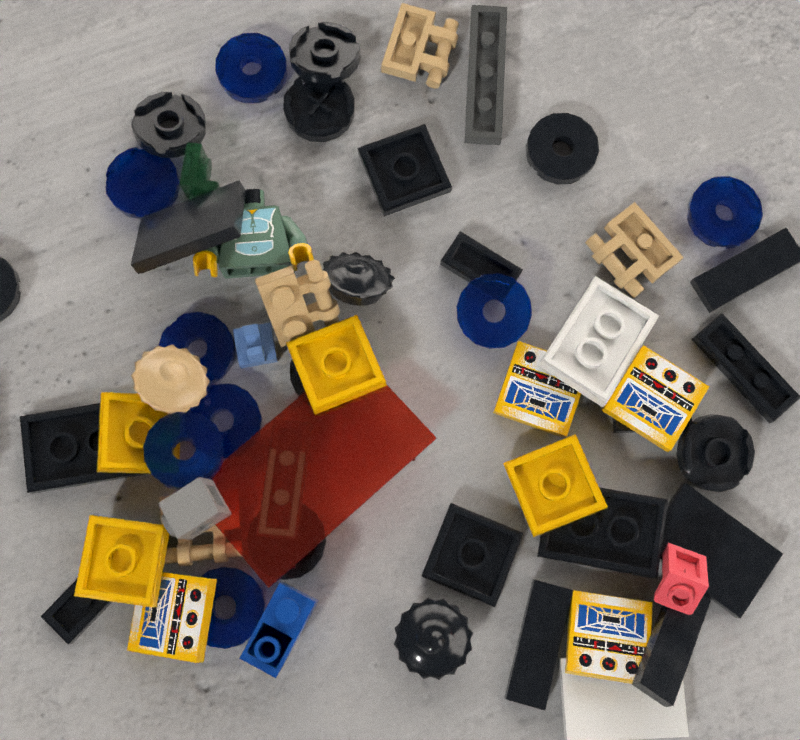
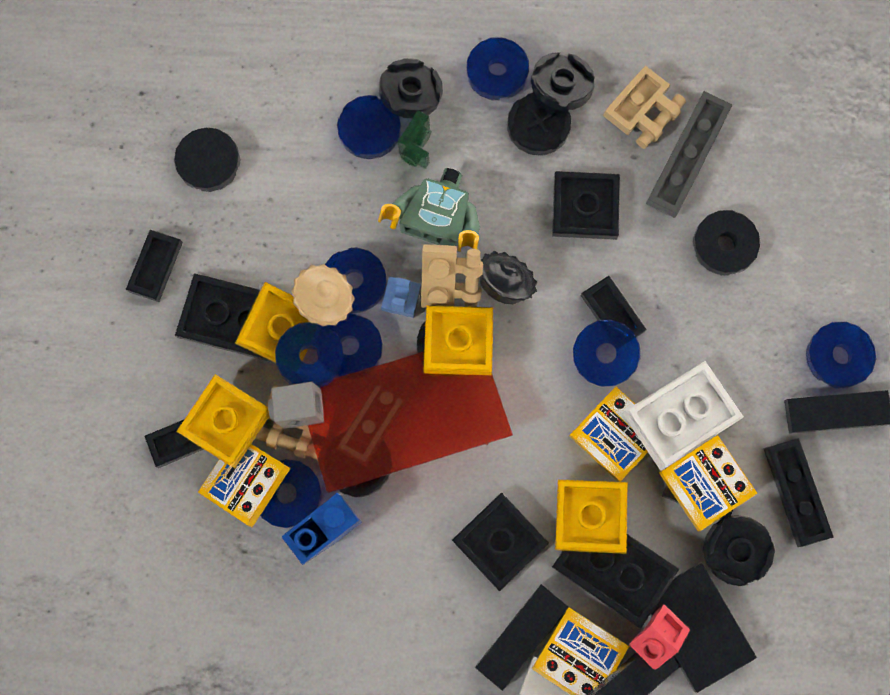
camera: 30 degrees right, 0 degrees up
(189, 227) = (390, 180): black tile -> none
(433, 638) = (438, 592): black piece -> none
(641, 243) = (757, 351): tan plate -> none

